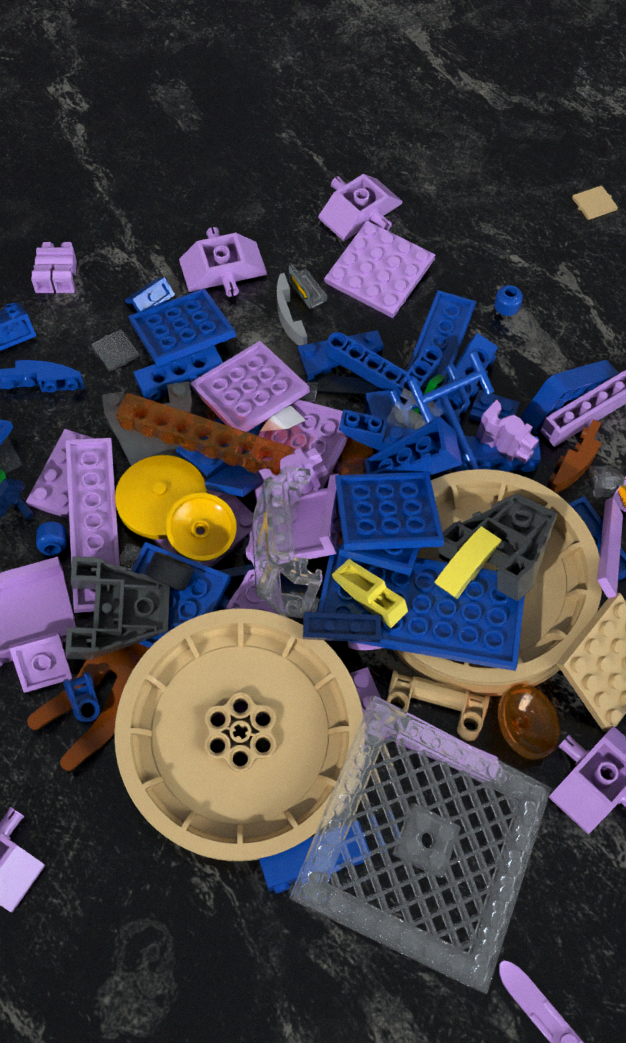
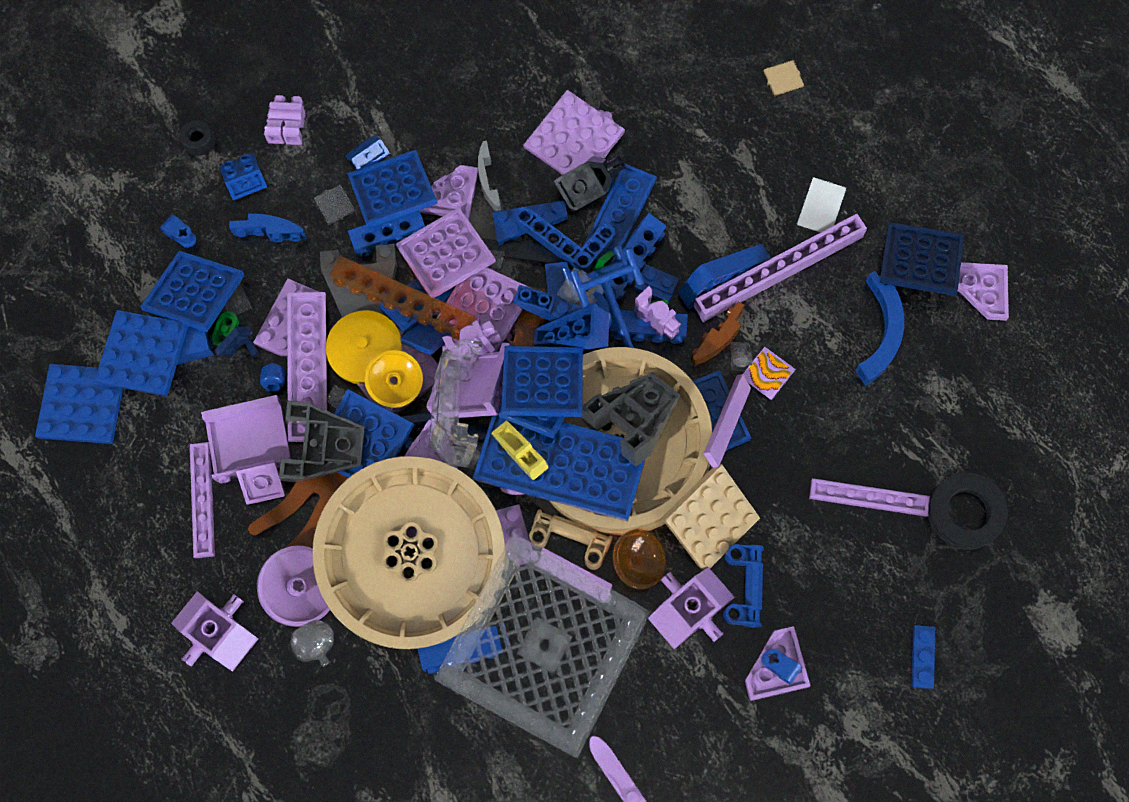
camera: 10 degrees right, 10 degrees up
(81, 696) = (291, 511): blue piece -> none
(86, 792) = (290, 588): none -> lavender dish
(118, 863) = (312, 642): none -> clear piece
(169, 571) = (364, 417): black tyre -> none
(221, 262) = (433, 124): lavender slope -> none
(250, 327) = (454, 192): none -> lavender plate
(283, 419) = (472, 285): white sticker -> none
(306, 287) = (507, 153): clear panel -> none
(341, 627) = (493, 477): dark blue plate -> none
(356, 203) = (563, 71): lavender slope -> none
(403, 306) = (588, 181): none -> black plate
(467, 562) = (600, 431): light yellow slope -> none
(508, 300) = (684, 179): blue head -> none

